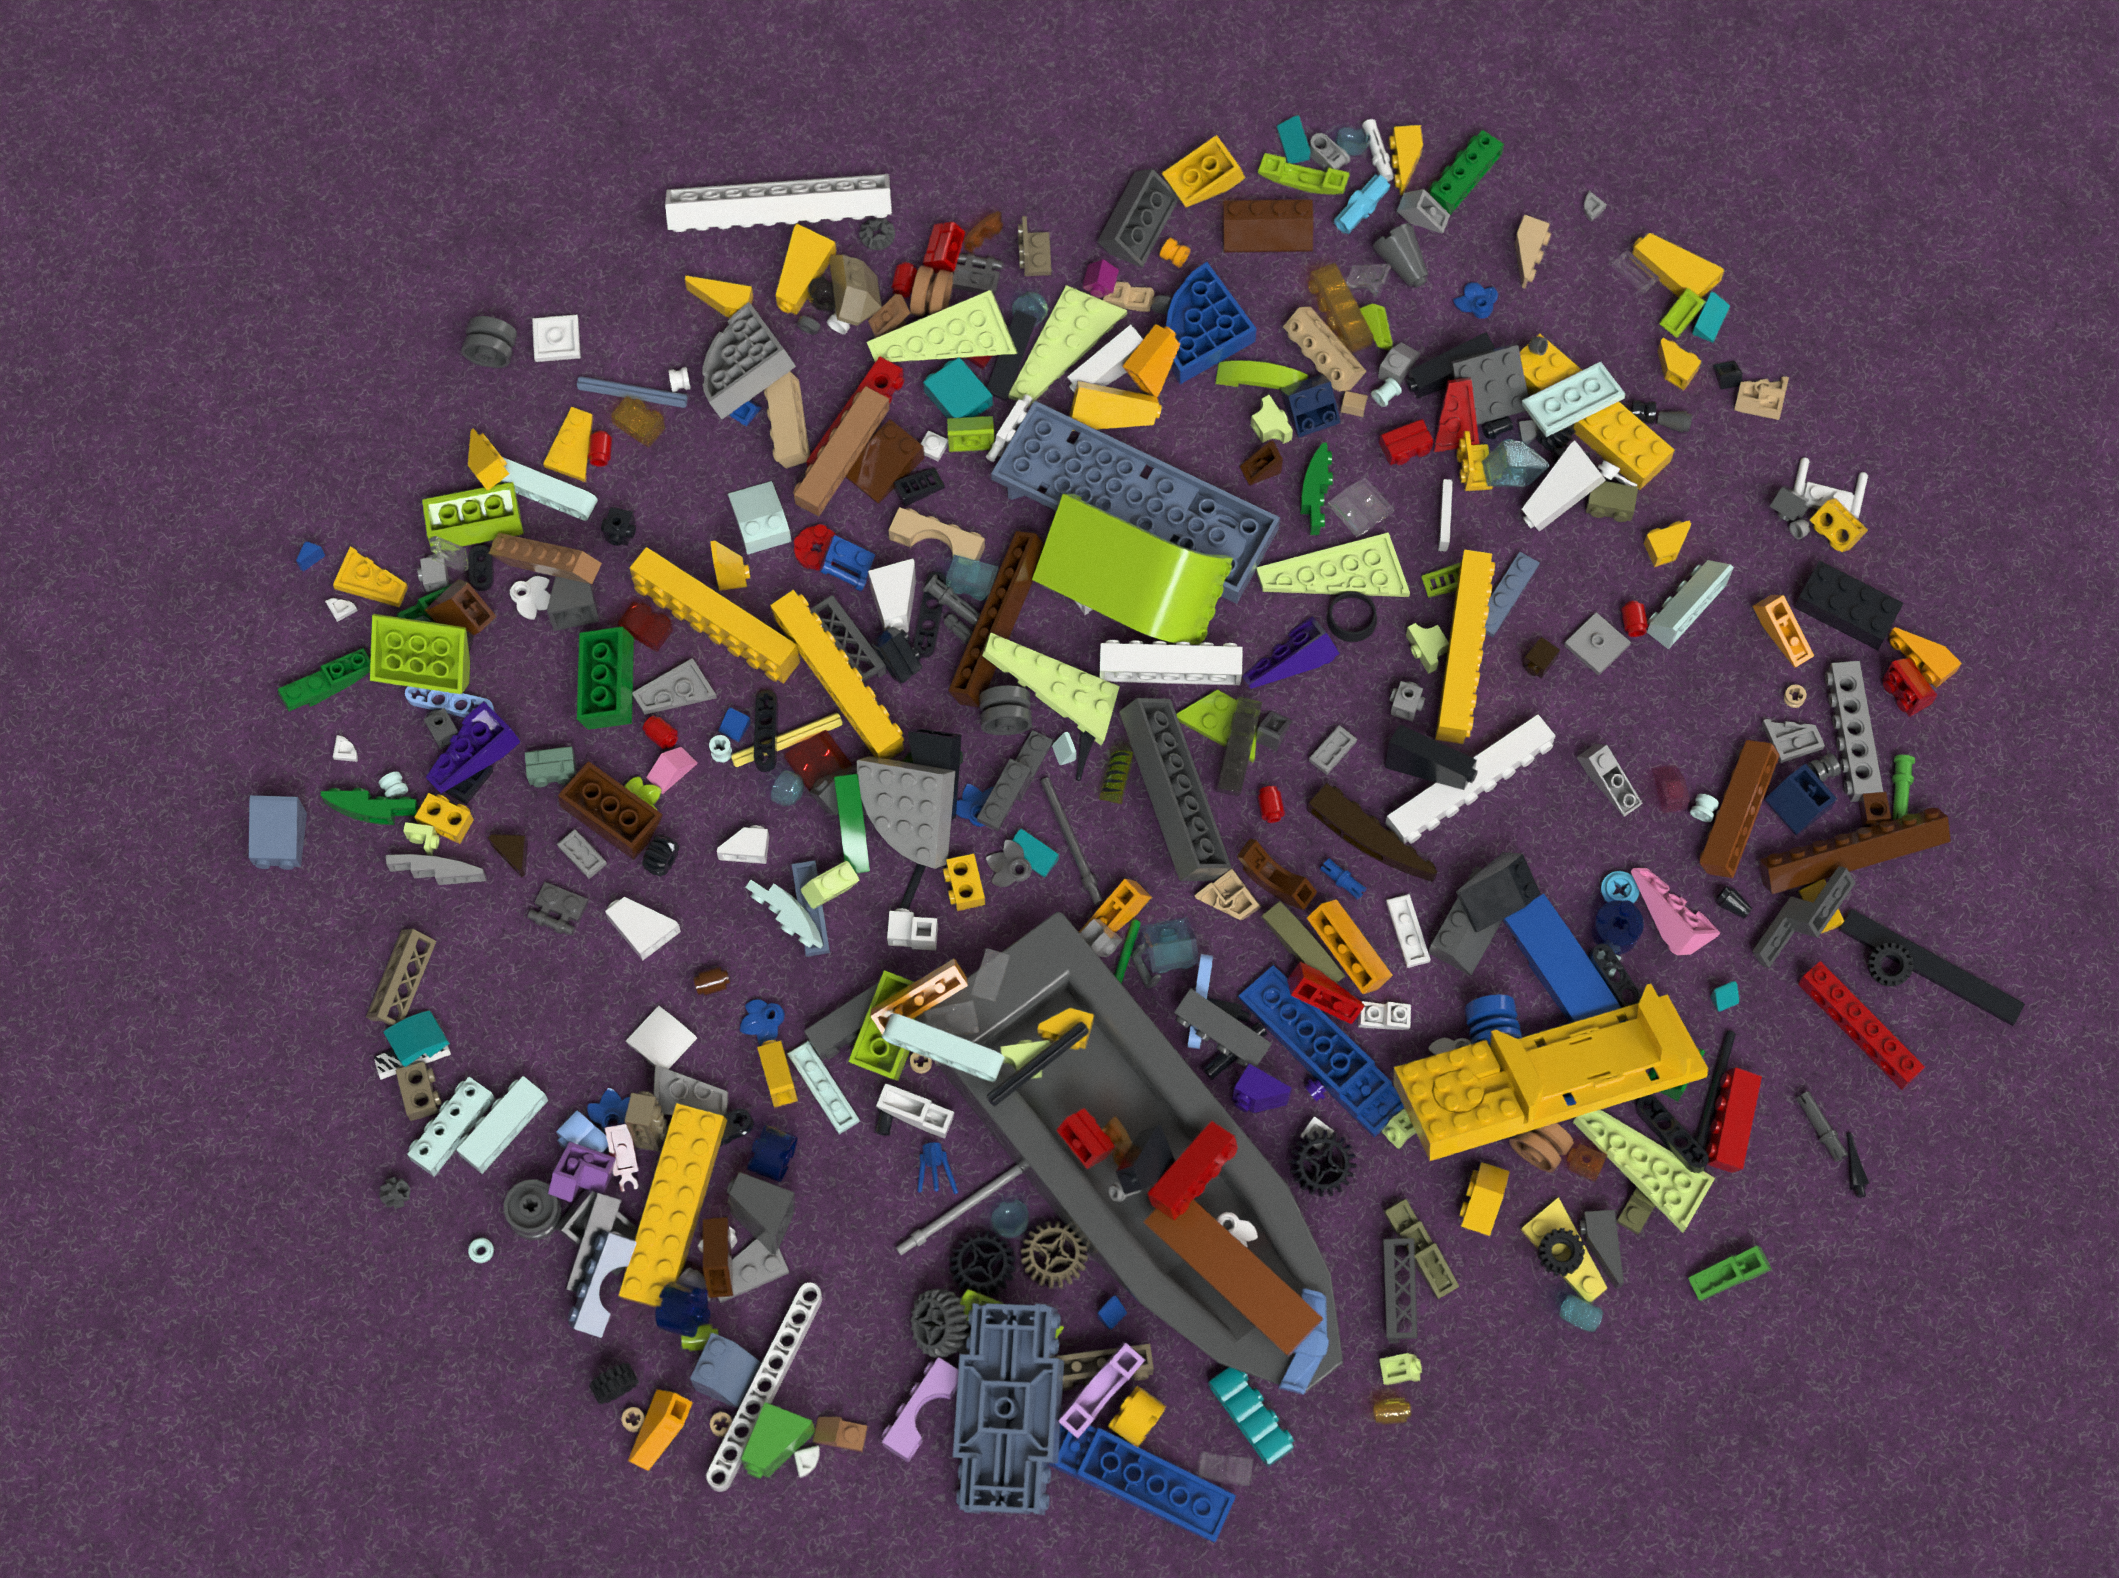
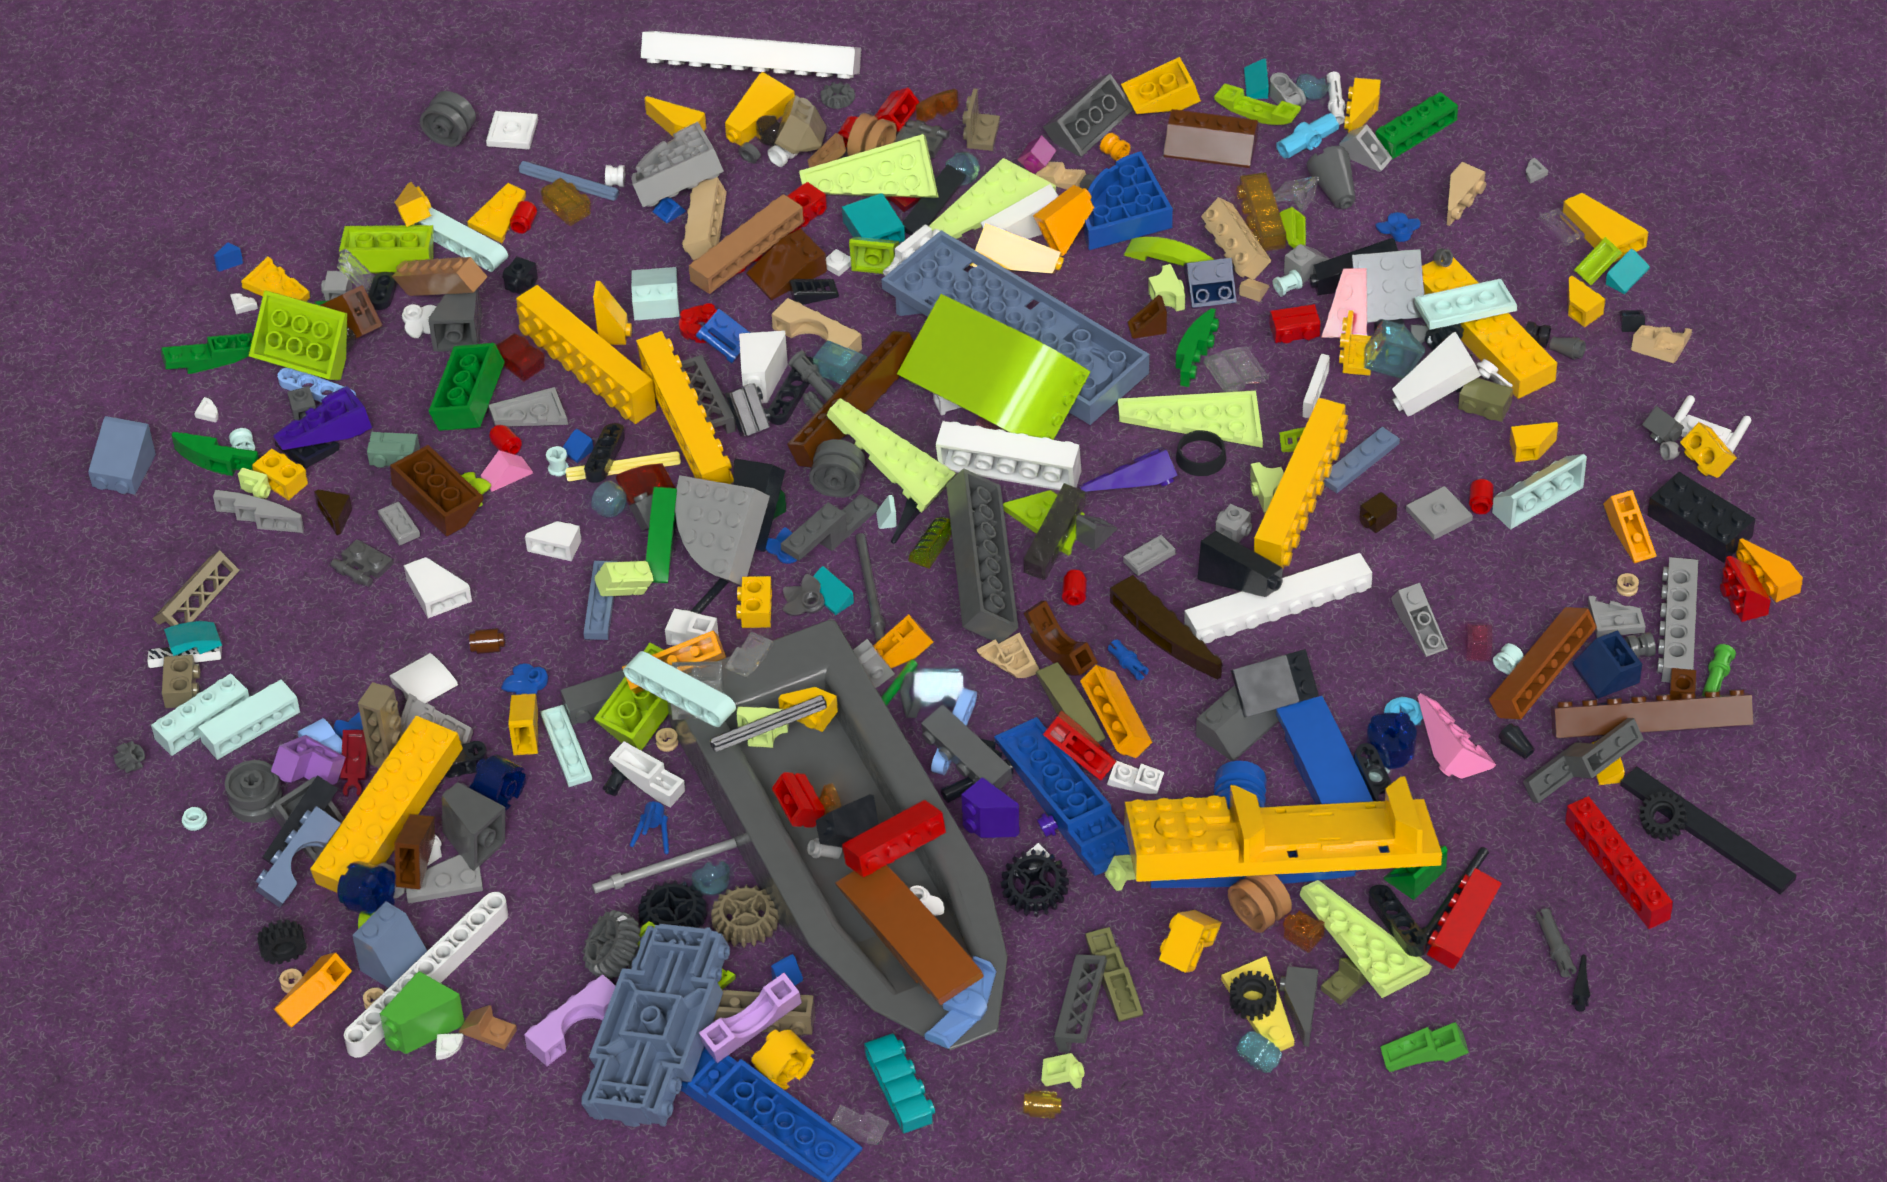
camera: 15 degrees right, 20 degrees down
(660, 855) = (471, 532): black gear -> none
(789, 912) = (576, 593): light aqua slope -> none
(1408, 931) = (1180, 713): white tile -> none
(1725, 996) = (1486, 816): teal slope -> none

